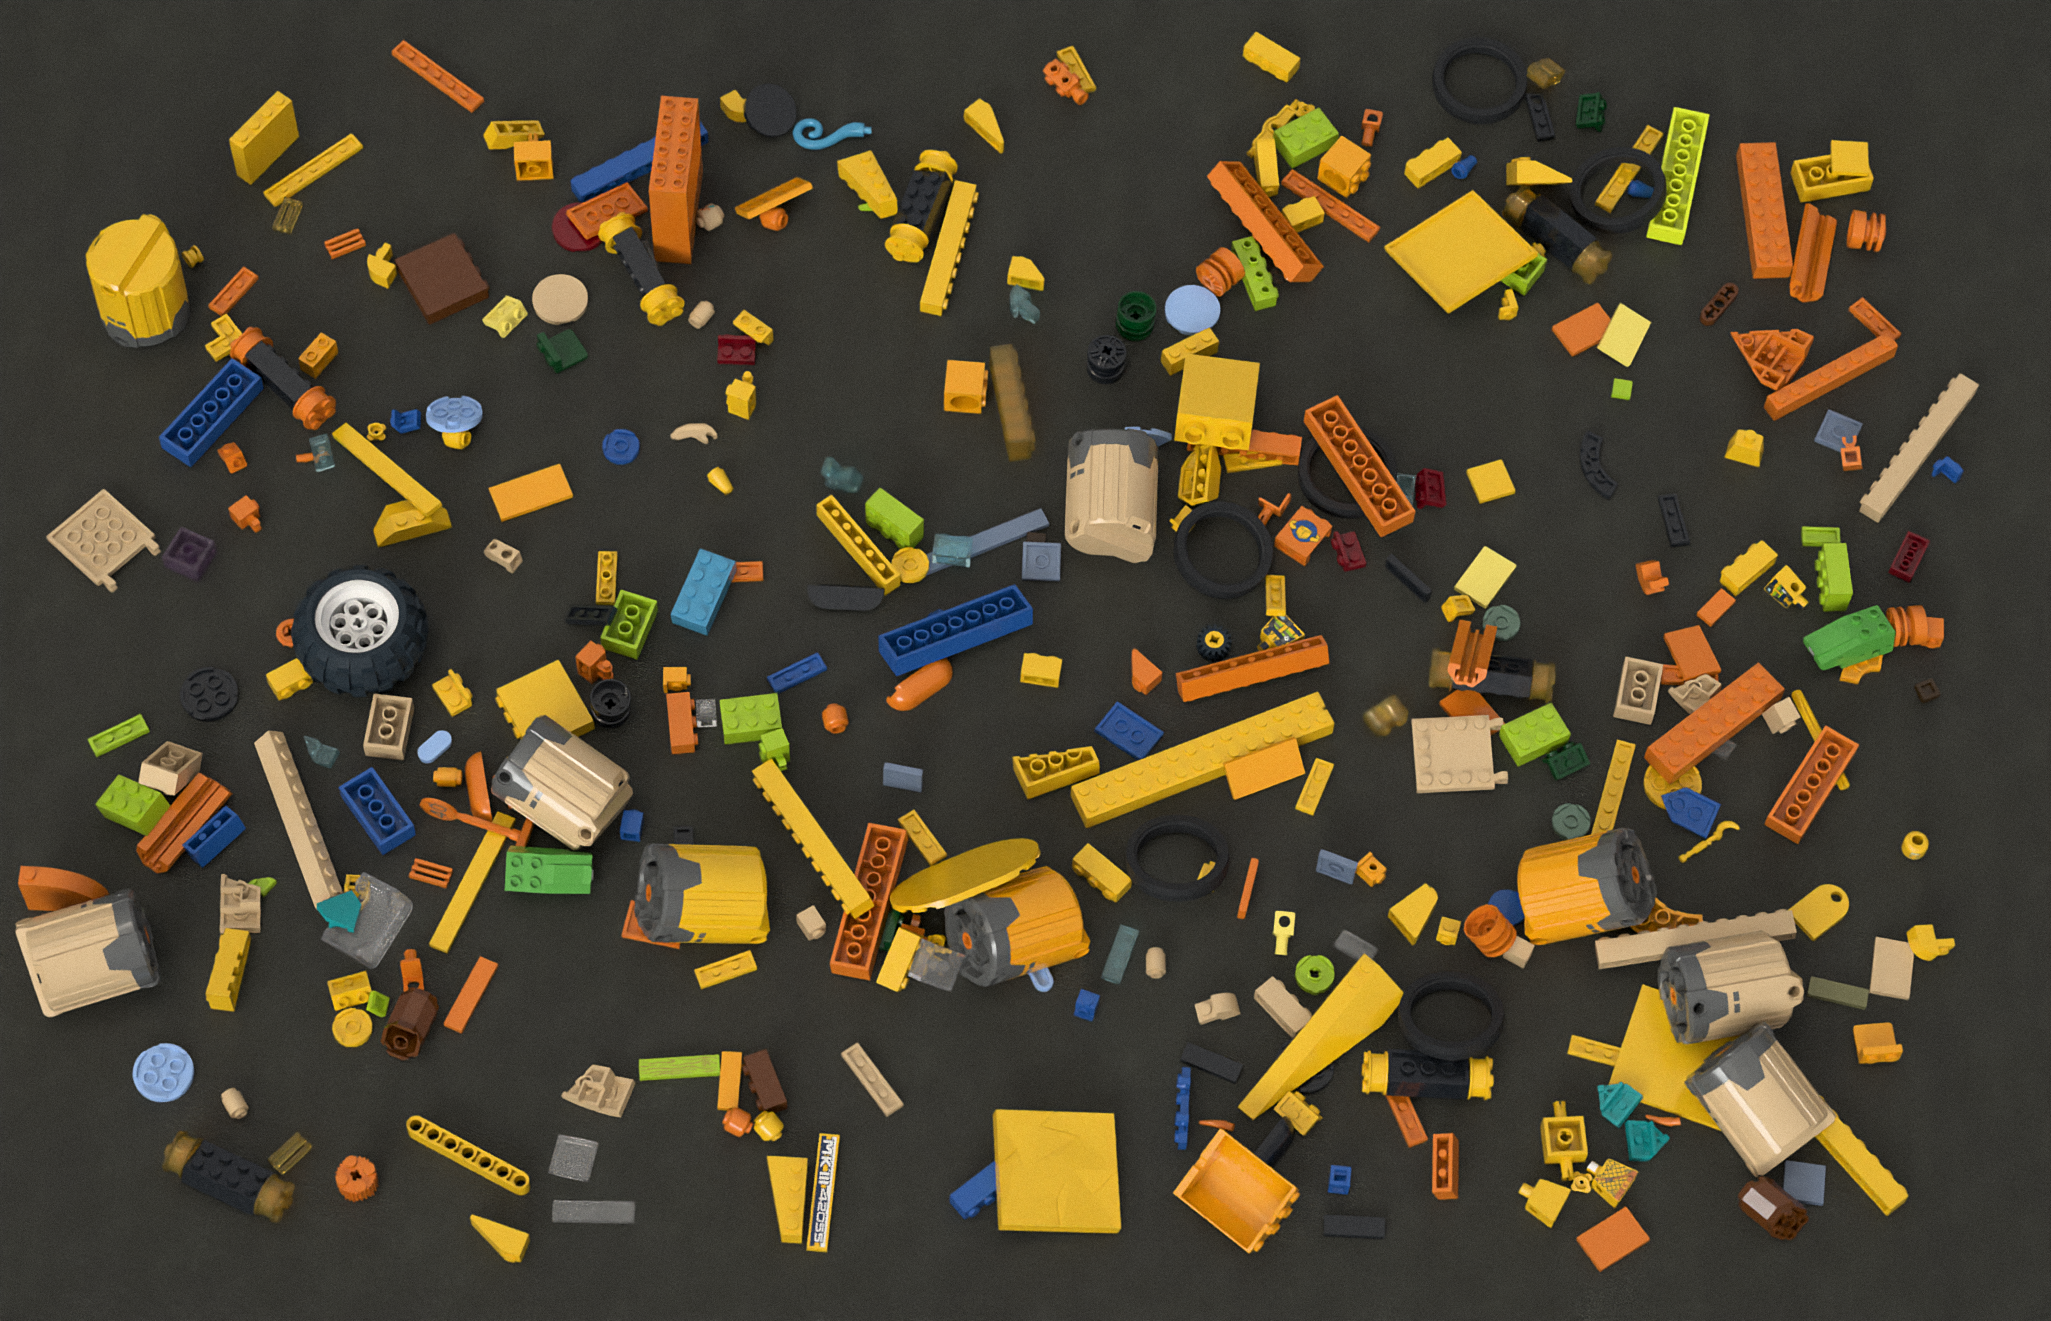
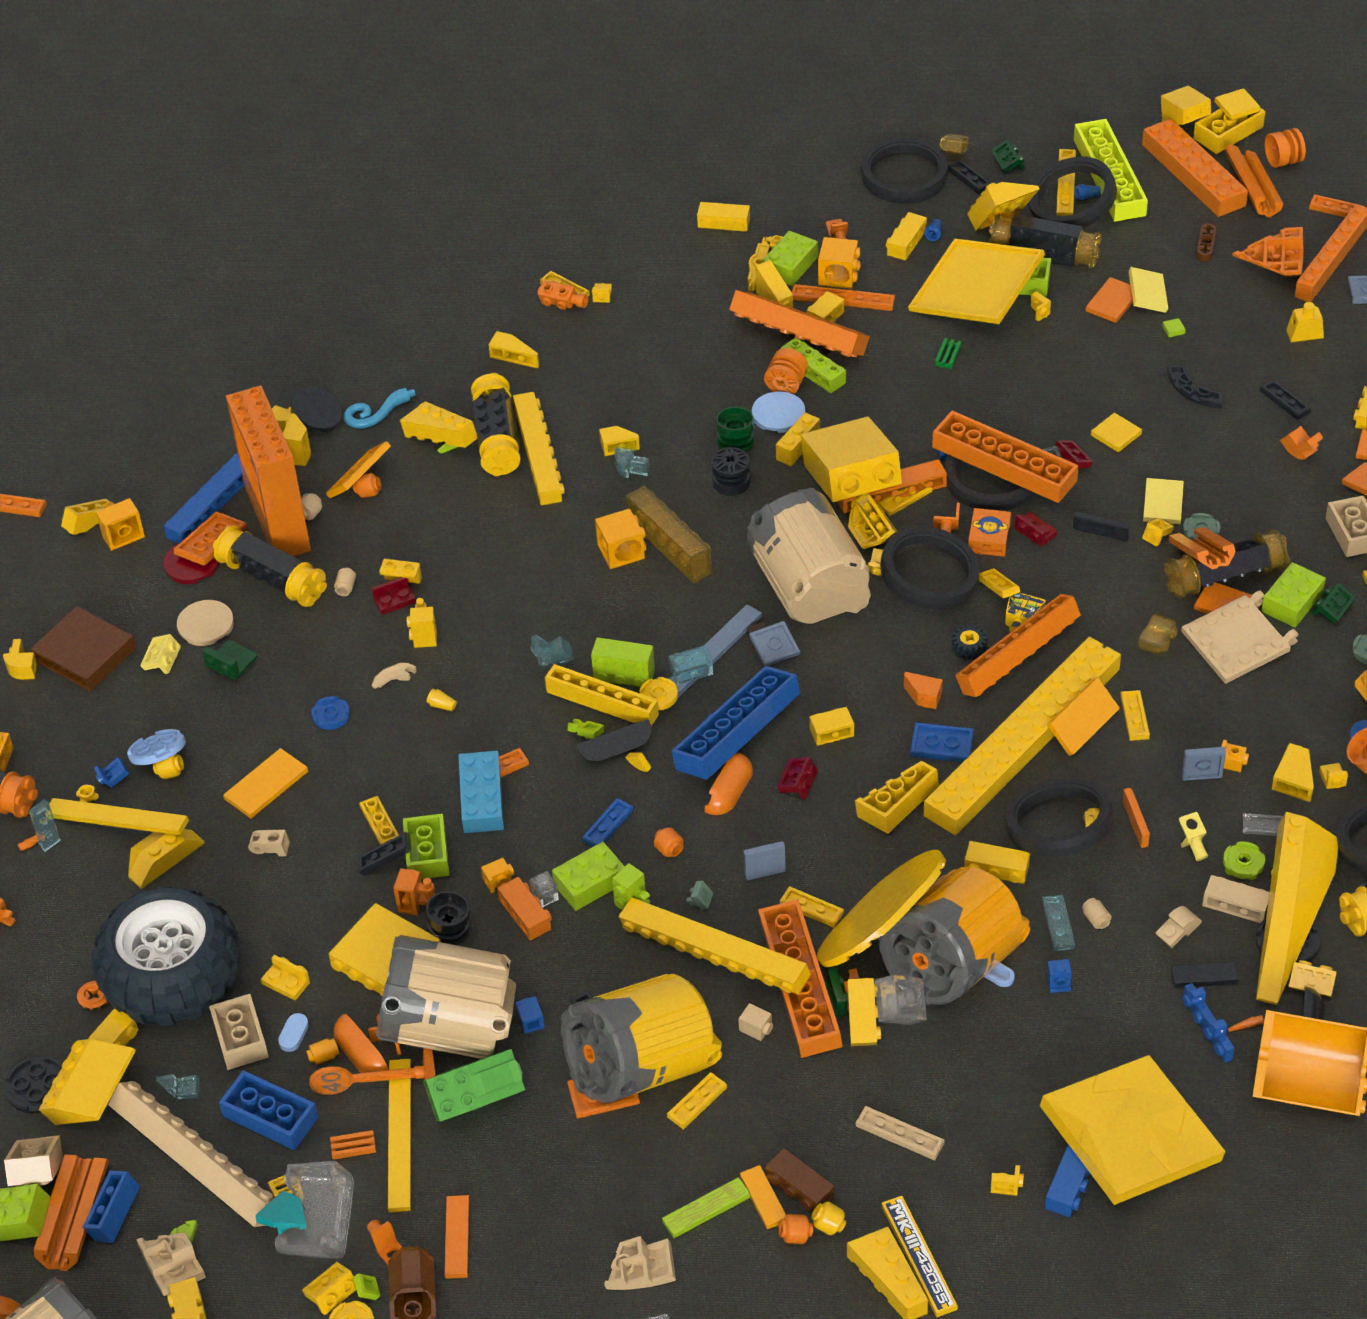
camera: 20 degrees left, 15 degrees down
(245, 714) = (86, 1081): none -> yellow slope
(730, 141) = (297, 440): none -> yellow slope
(829, 571) = (588, 729): none -> lime plate
(834, 782) = (700, 895): none -> sand green tile
(856, 625) = (639, 761): none -> yellow tile
(928, 1166) = (1007, 1184): none -> yellow bracket
(983, 707) = (798, 776): none -> dark red bracket
(1107, 94) = (602, 292): none -> yellow bracket
(1405, 312) = (950, 344): none -> green tile
(1796, 136) = (1184, 105): none -> yellow slope

